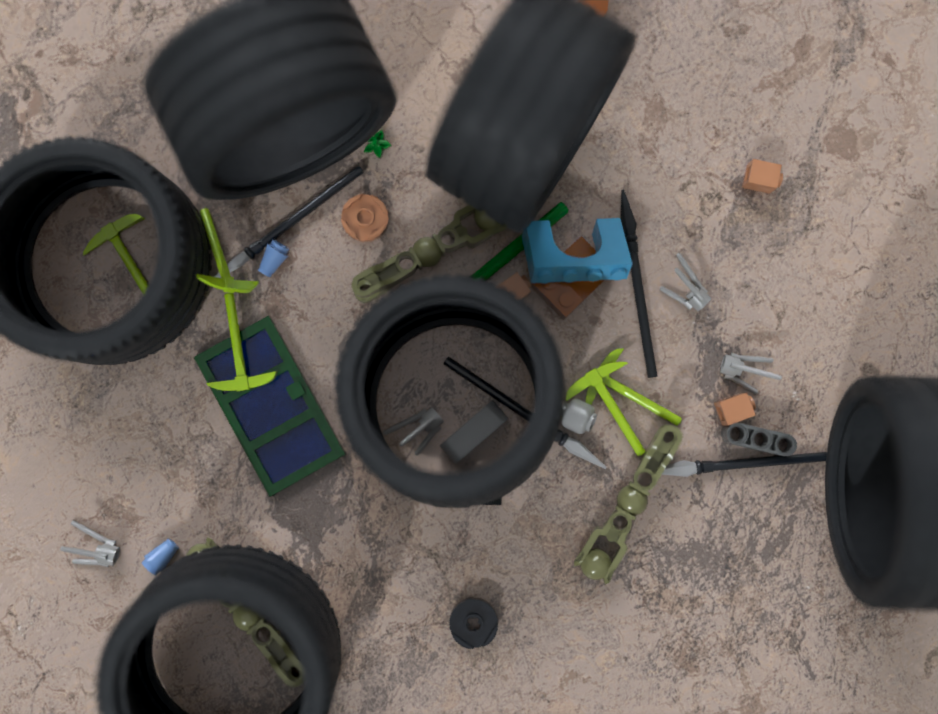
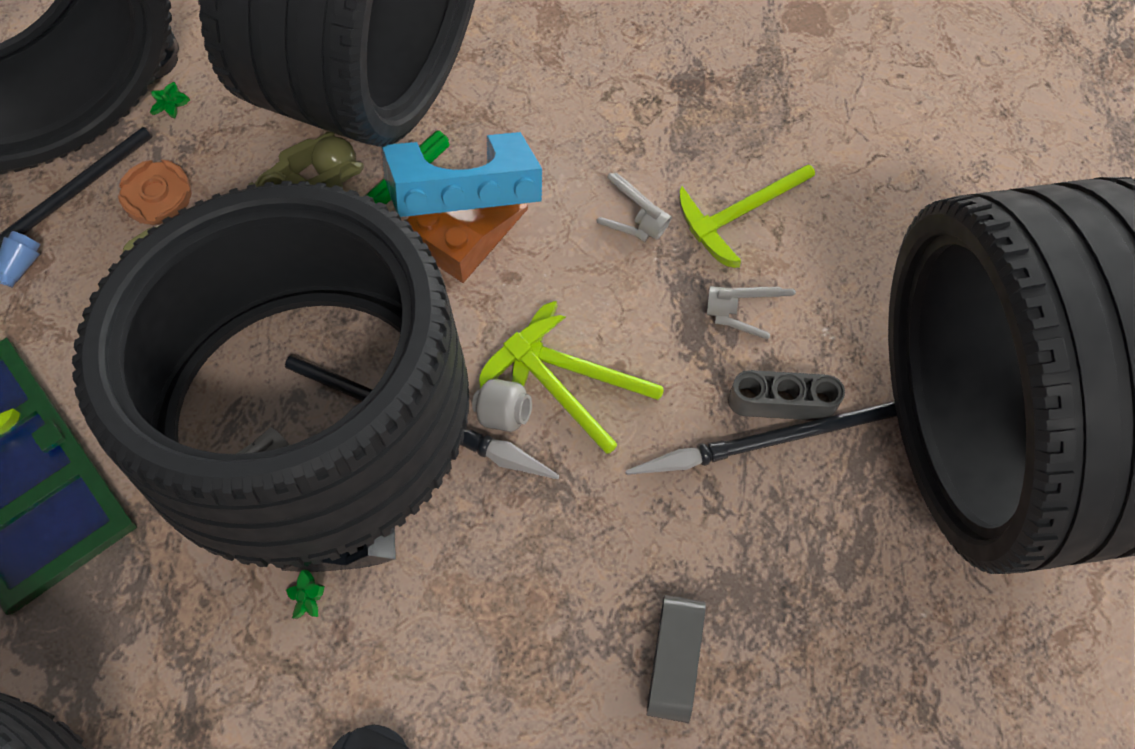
camera: 15 degrees left, 20 degrees down
(445, 517) = (305, 594): none -> green plant
(629, 226) = (539, 147): black piece -> none
(630, 502) = (605, 515): olive piece -> none
(657, 590) = (676, 659): none -> dark grey beam
(732, 305) = (705, 227): none -> lime piece
(735, 408) = (738, 354): nougat brick -> none
(762, 176) = (709, 62): nougat brick -> none

